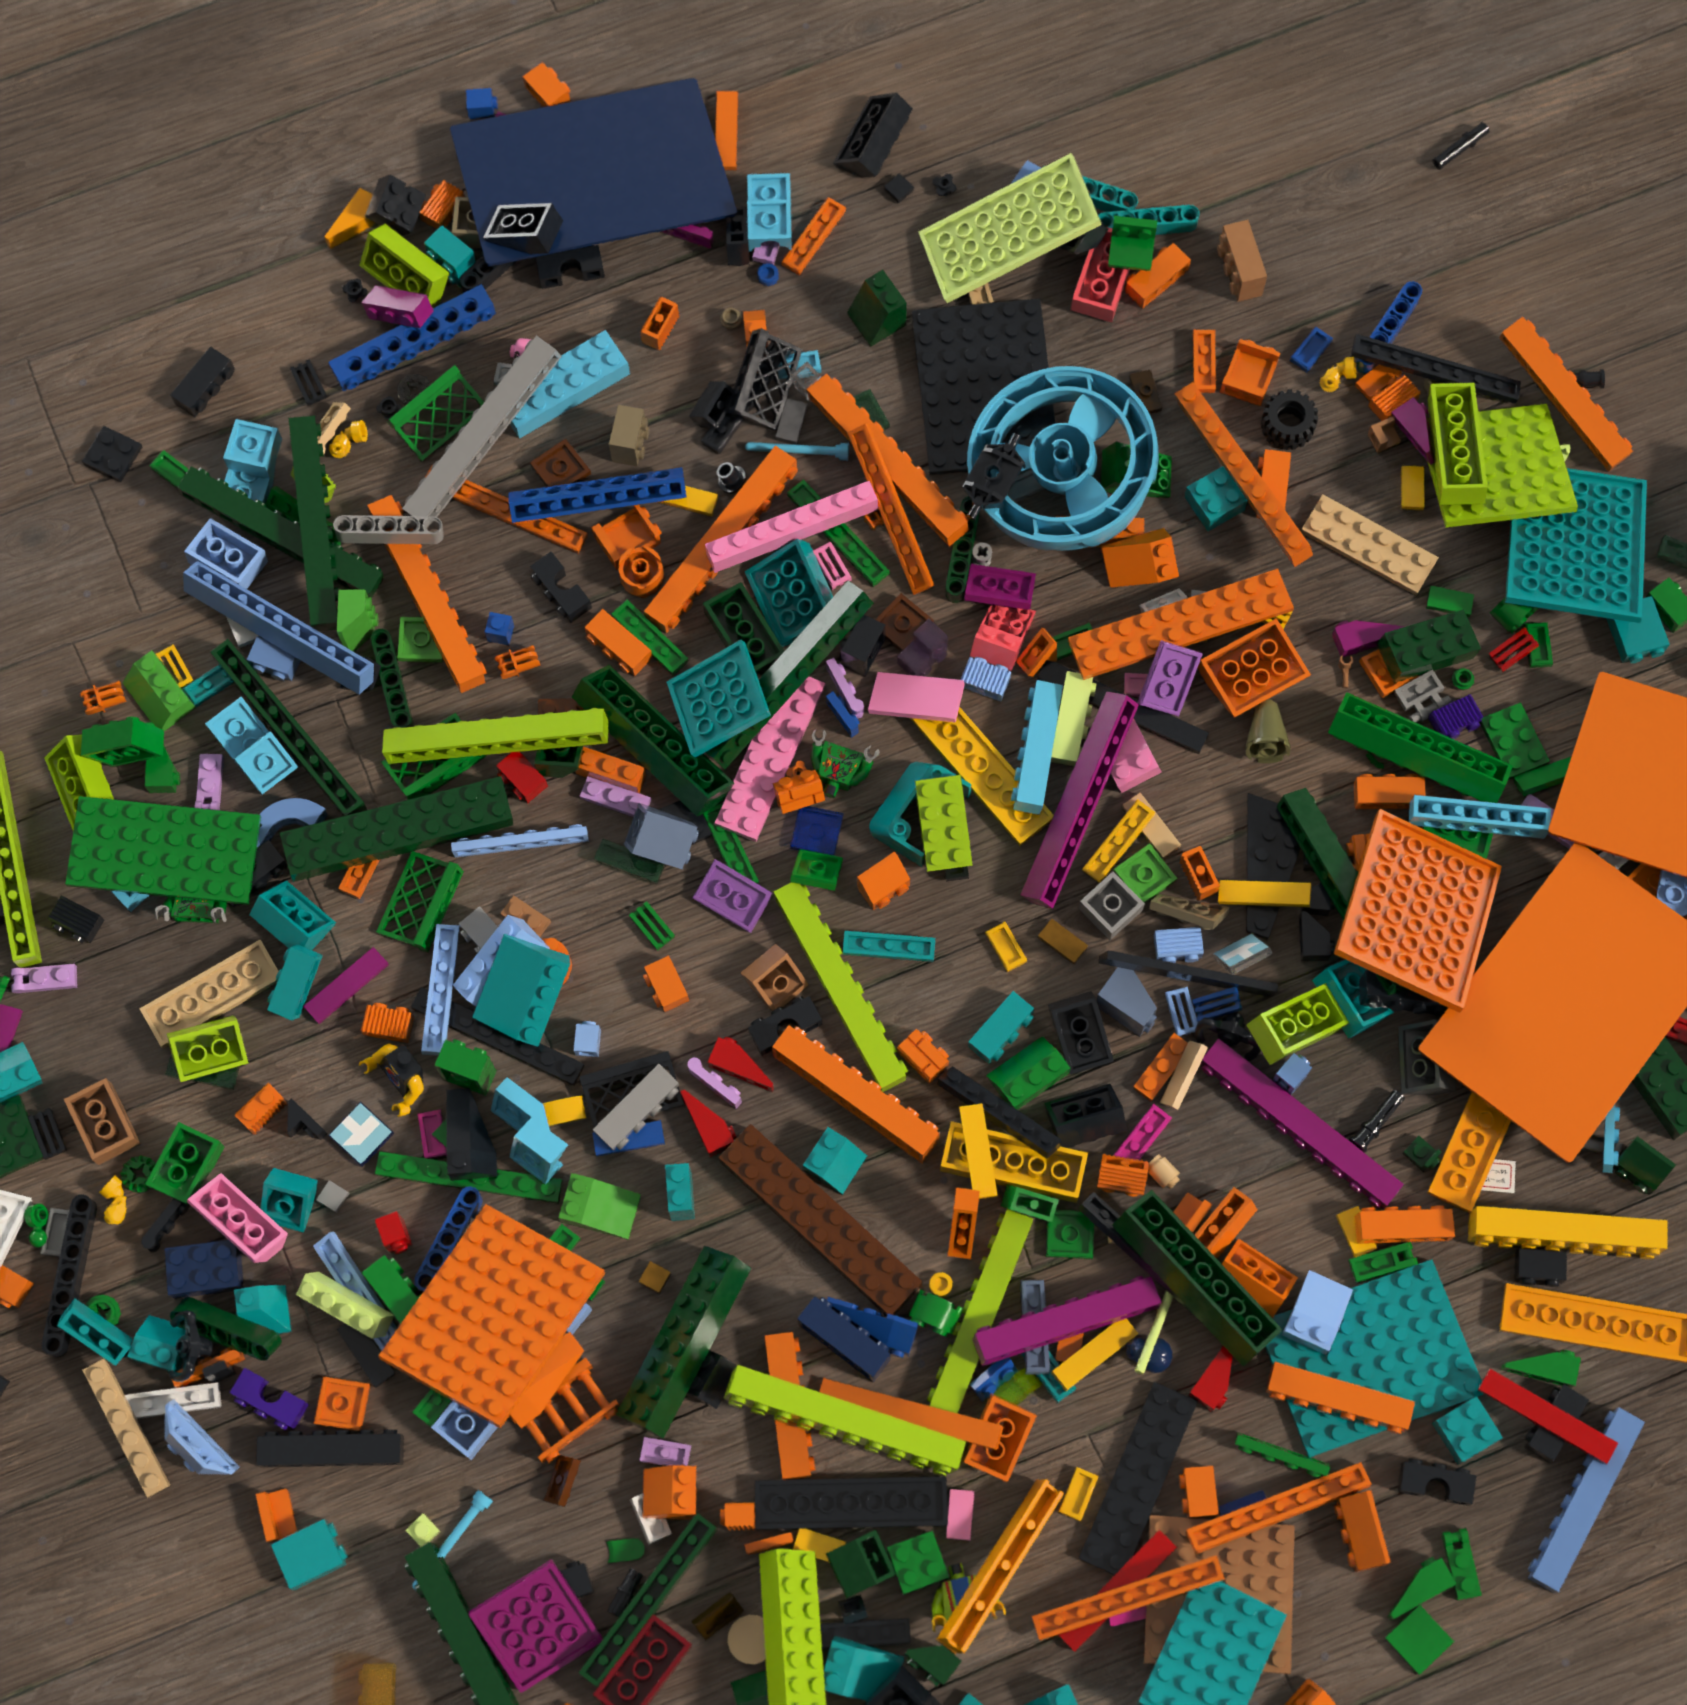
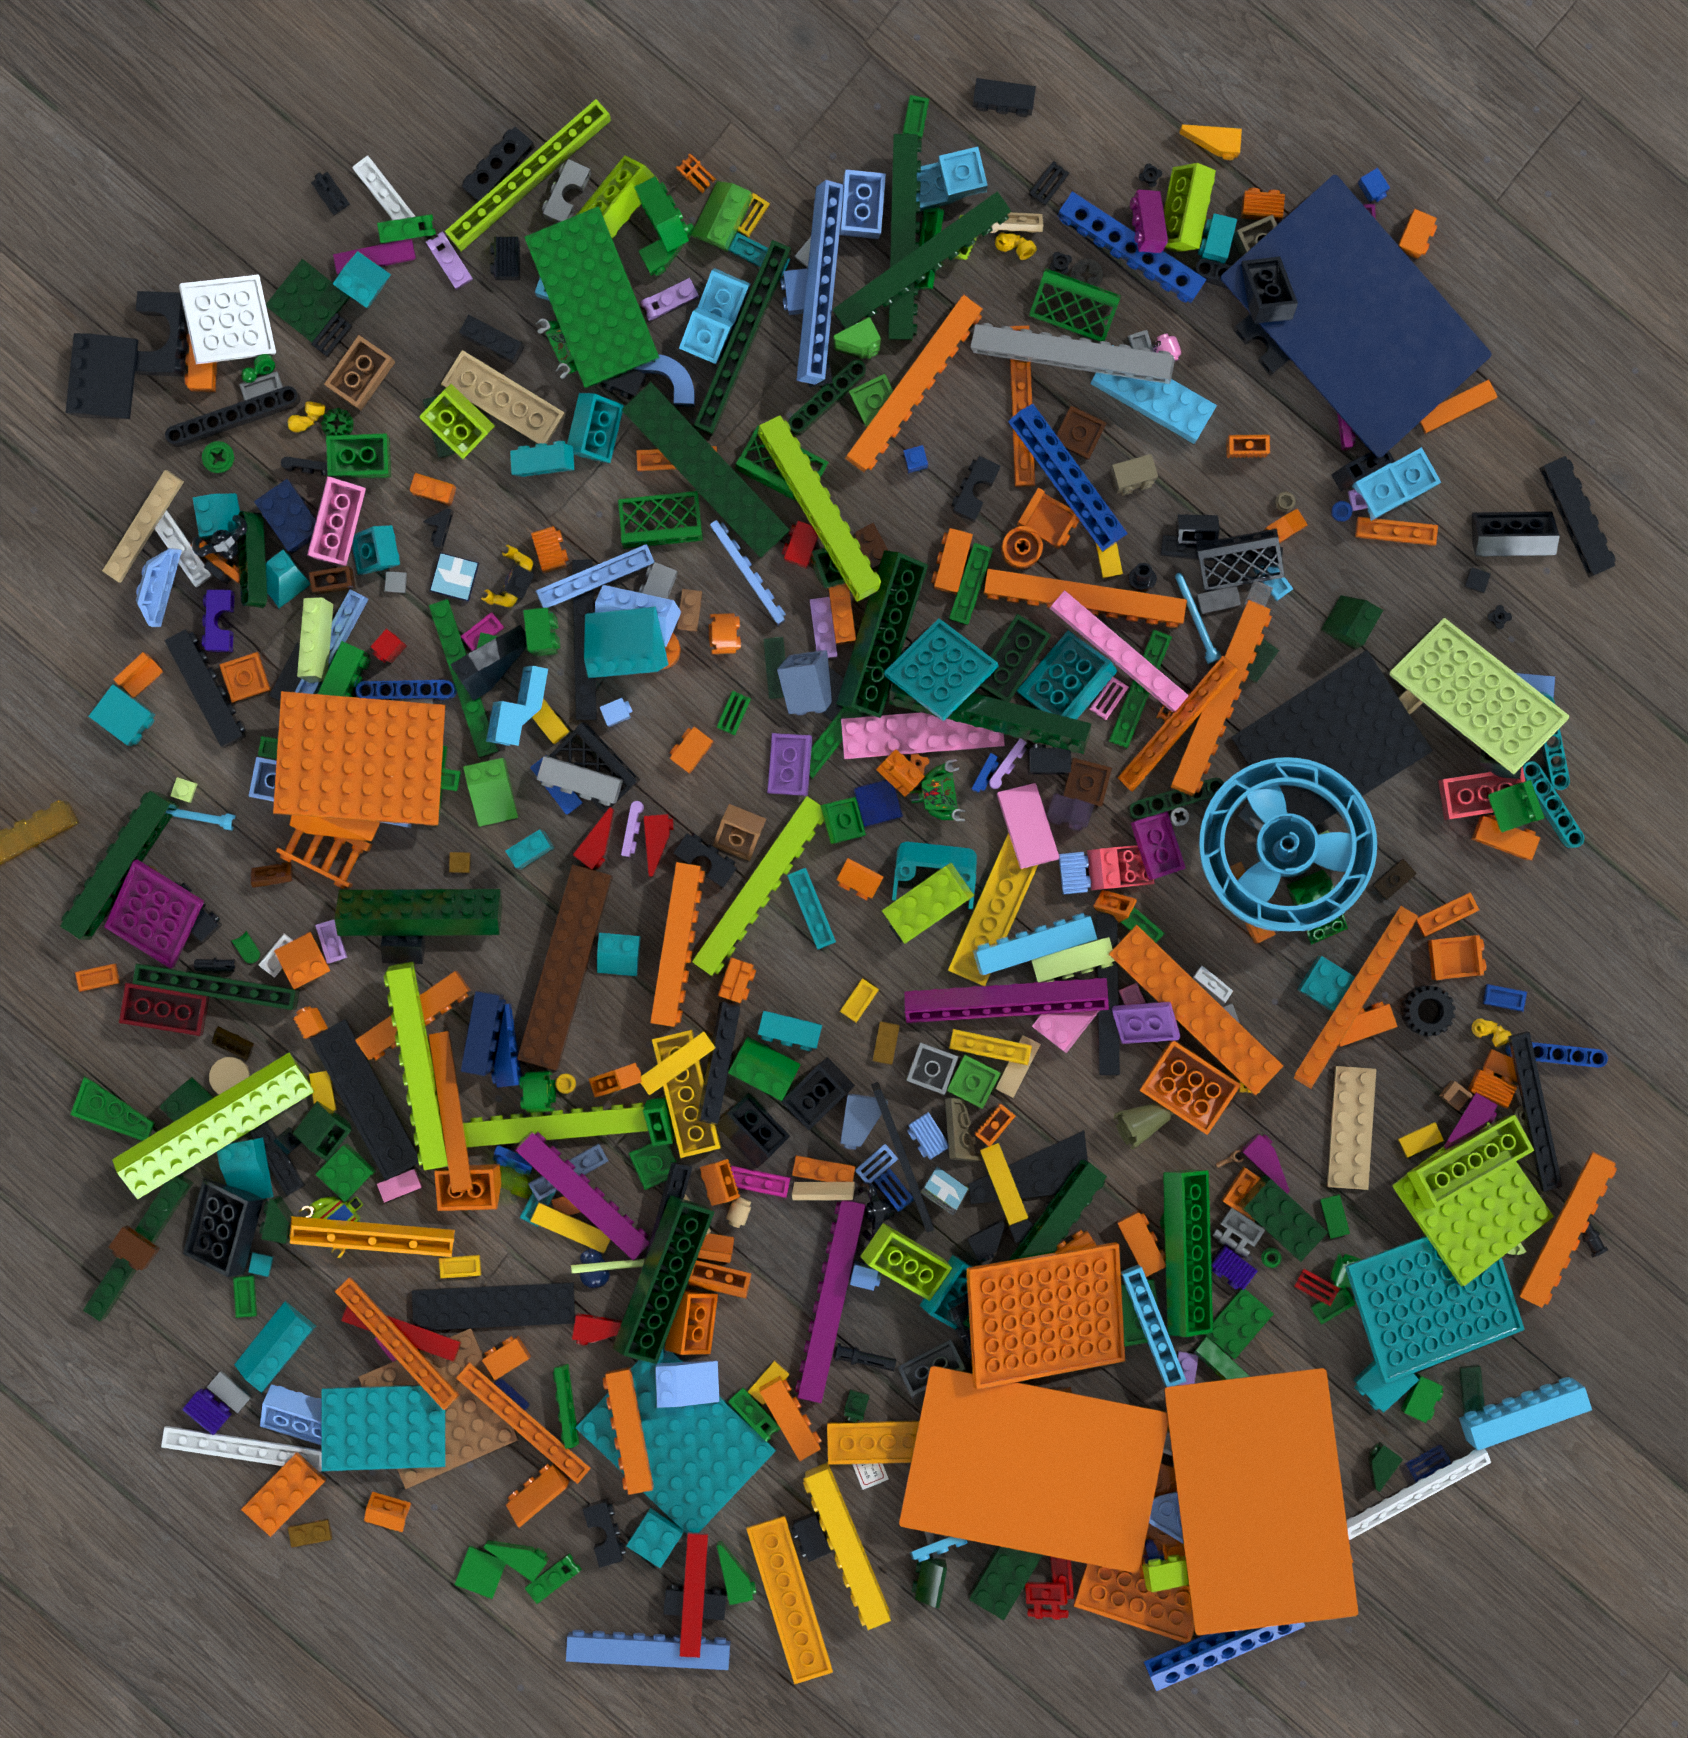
camera: 60 degrees right, 15 degrees up
(36, 815) = (571, 177): none -> light grey arch
(95, 1332) = (197, 462): teal brick -> none
(112, 454) = (904, 58): black plate -> none
(132, 981) = (491, 338): none -> black arch
(294, 1257) = (332, 580): none -> reddish brown brick
(346, 985) = (564, 499): magenta tile -> none
(396, 202) = (1239, 168): black piece -> none
(398, 535) = (948, 315): light grey beam -> none
(522, 660) = (894, 487): orange arm -> none
(567, 892) = (724, 633): none -> orange brick
(769, 1543) = (304, 1054): orange tile -> none
(887, 75) = (1577, 516): none -> black brick
(988, 491) = (1225, 804): black plate -> none
(1140, 559) = (1238, 949): orange slope -> none
(1242, 261) = (1553, 903): medium nougat brick -> none

